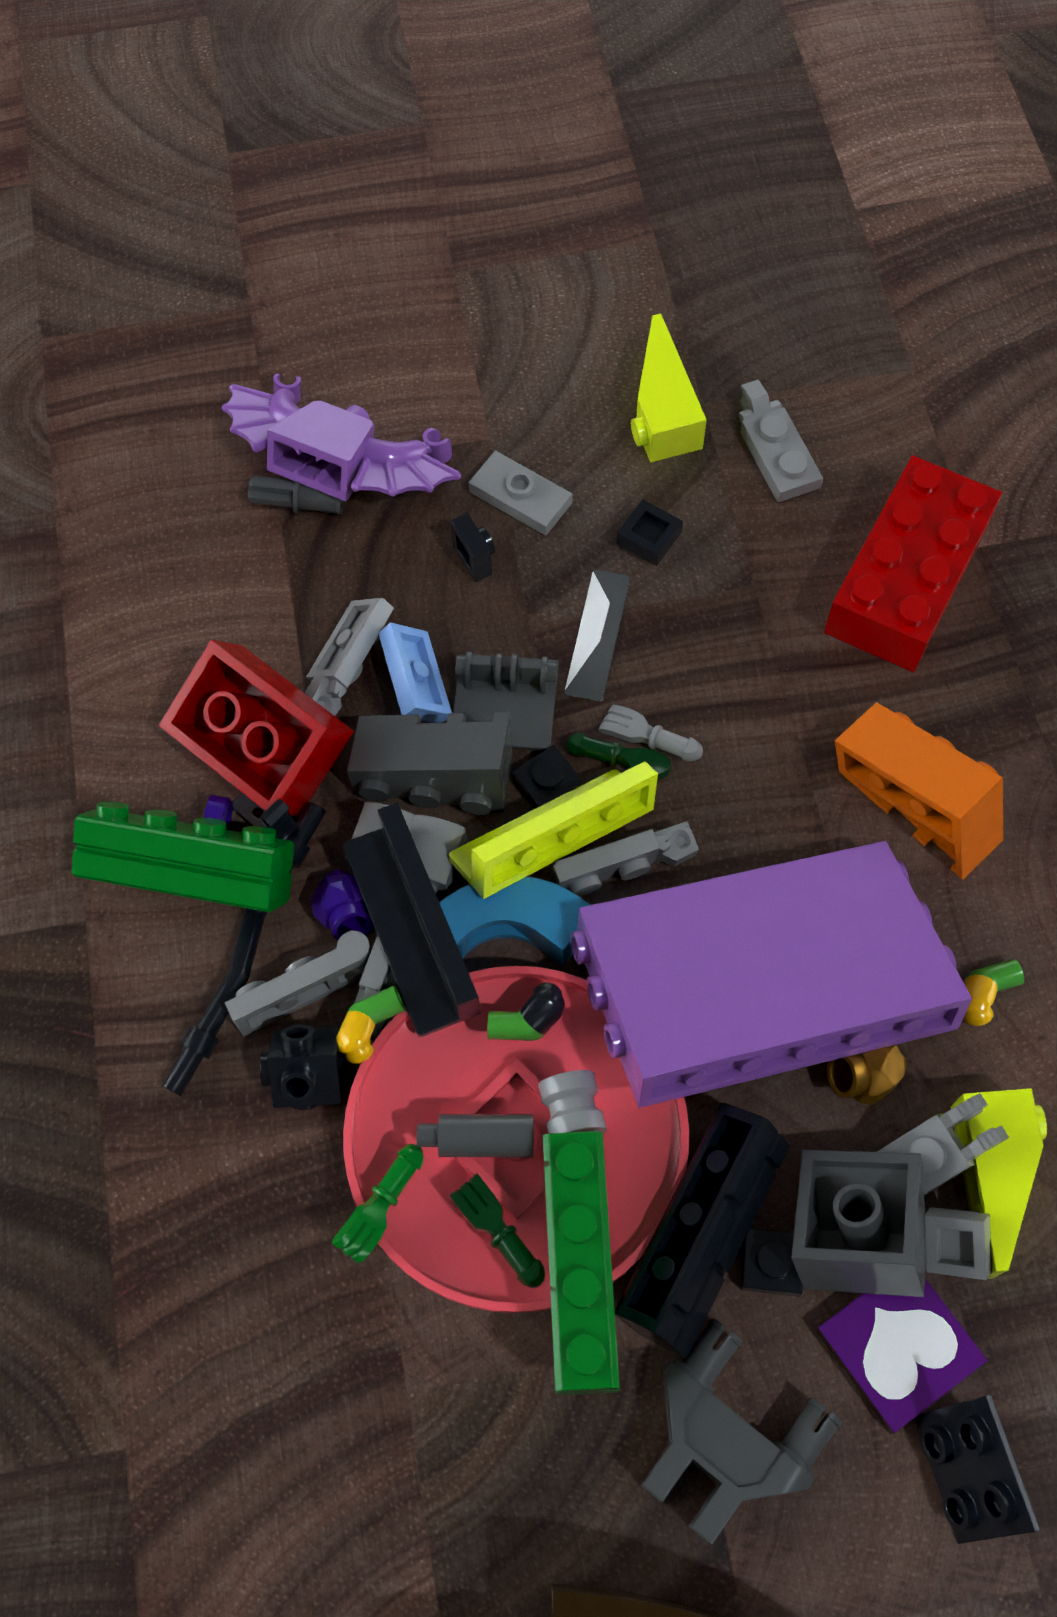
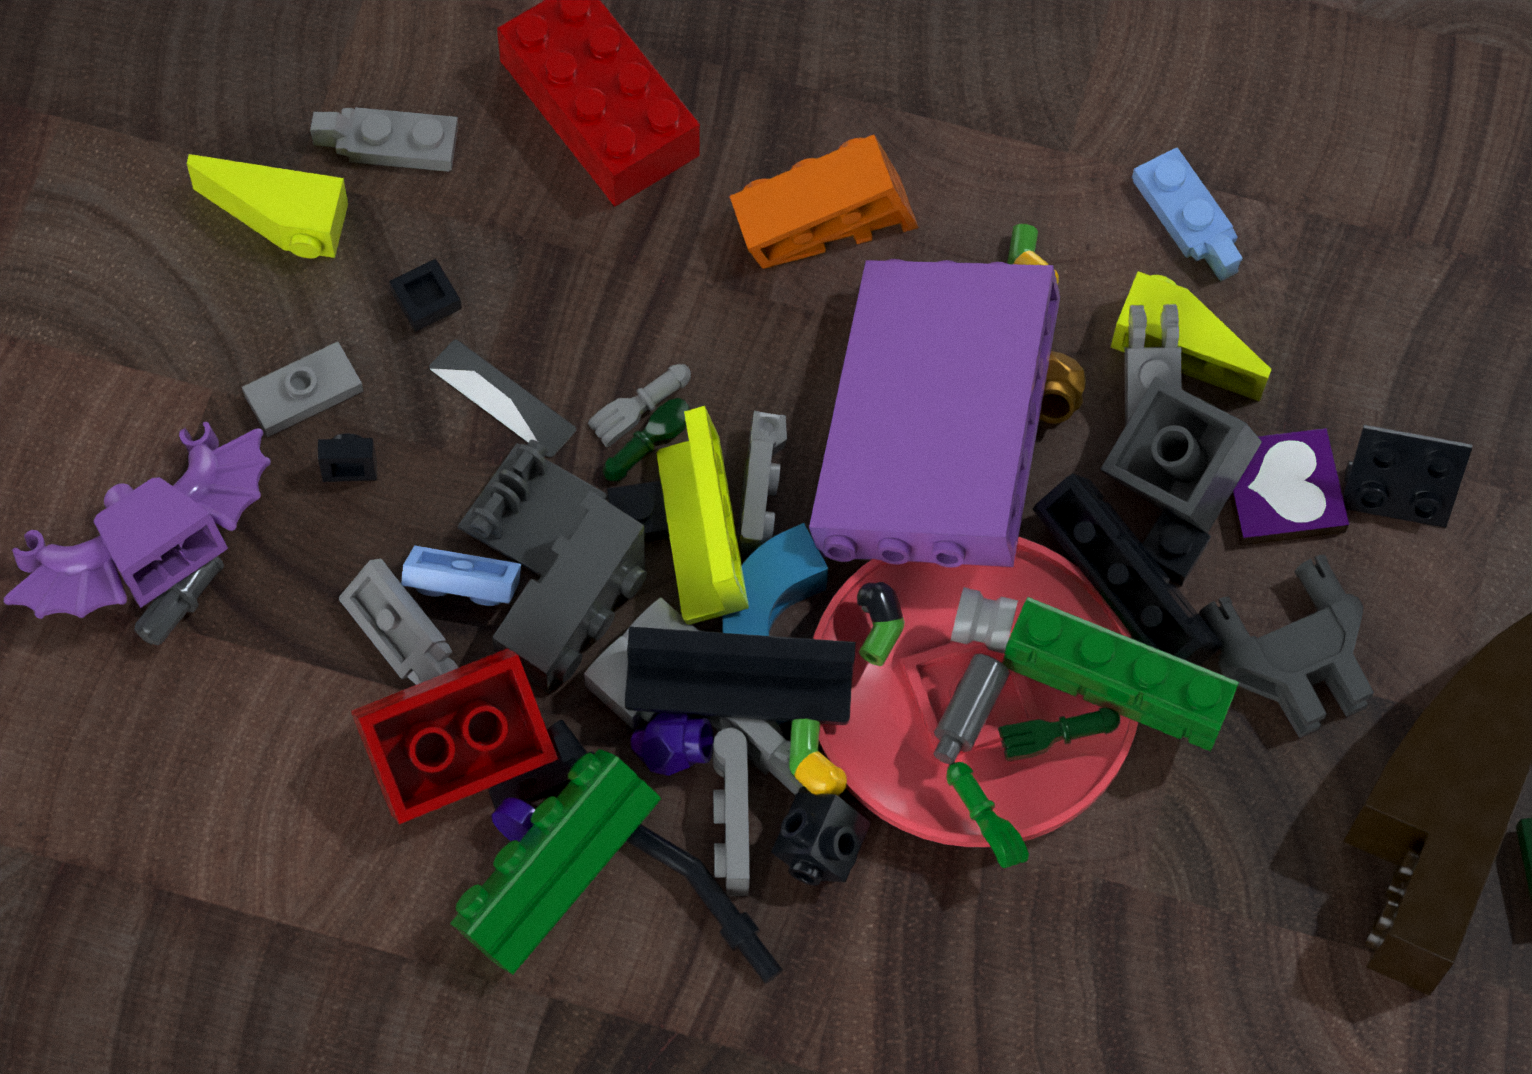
camera: 70 degrees left, 0 degrees up
(958, 1243) = (1233, 390): light grey tile -> none

